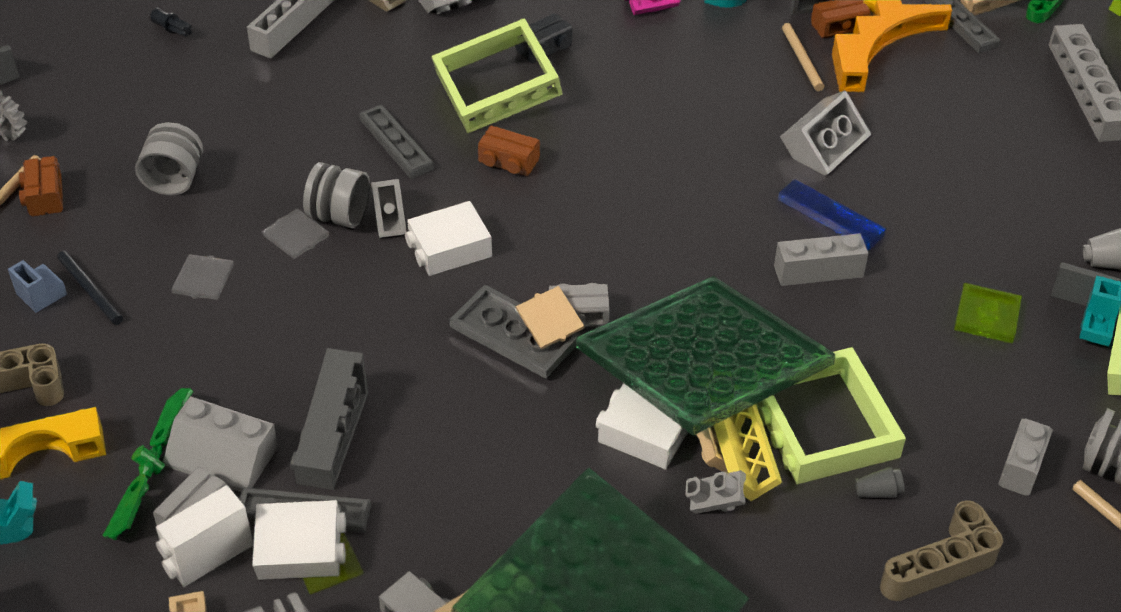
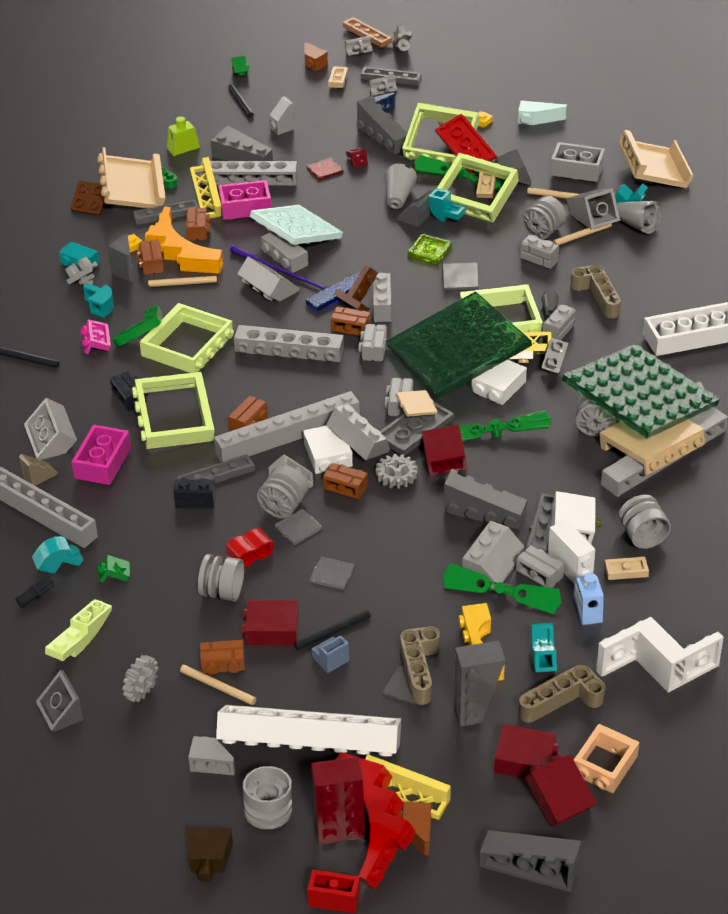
camera: 80 degrees left, 5 degrees down
(98, 223) = (271, 622): none -> dark red brick
(101, 67) = (81, 631): none -> yellowish green slope
(109, 568) = (588, 589): none -> light blue torso
(206, 76) = (114, 568): none -> green bracket
(225, 24) = (55, 551): none -> teal brick
(242, 185) = (250, 547): none -> red brick
(342, 121) = (194, 493): none -> black brick
(380, 264) = (345, 481): none -> dark orange brick
(405, 30) = (101, 454): none -> dark pink brick
(406, 317) = (396, 471): none -> light grey gear
(455, 365) = (444, 450): none -> dark red brick
(468, 257) = (357, 432): none -> light grey slope
(489, 194) = (279, 429): none -> light grey brick
(531, 465) = (532, 421): none -> green piece
(673, 49) = (181, 313): none -> yellowish green window
(679, 174) = (289, 343): none -> light grey brick
(687, 30) = (151, 319): none -> green beam
(703, 260) = (373, 342): none -> light grey brick
(751, 232) = (349, 321): none -> dark orange brick
(816, 496) = (559, 322): none -> light grey brick
(817, 223) = (359, 289): none -> reddish brown bracket
(895, 95) = (234, 249): none -> dark purple piece
(904, 141) = (289, 256): none -> light grey brick
(921, 355) = (460, 276): none -> slope
(935, 47) = (197, 224): none -> dark orange brick
(963, 139) = (296, 224): none -> light aqua plate
(1010, 81) = (241, 198): none -> dark pink brick
(1017, 41) = (211, 187): none -> light yellow fence

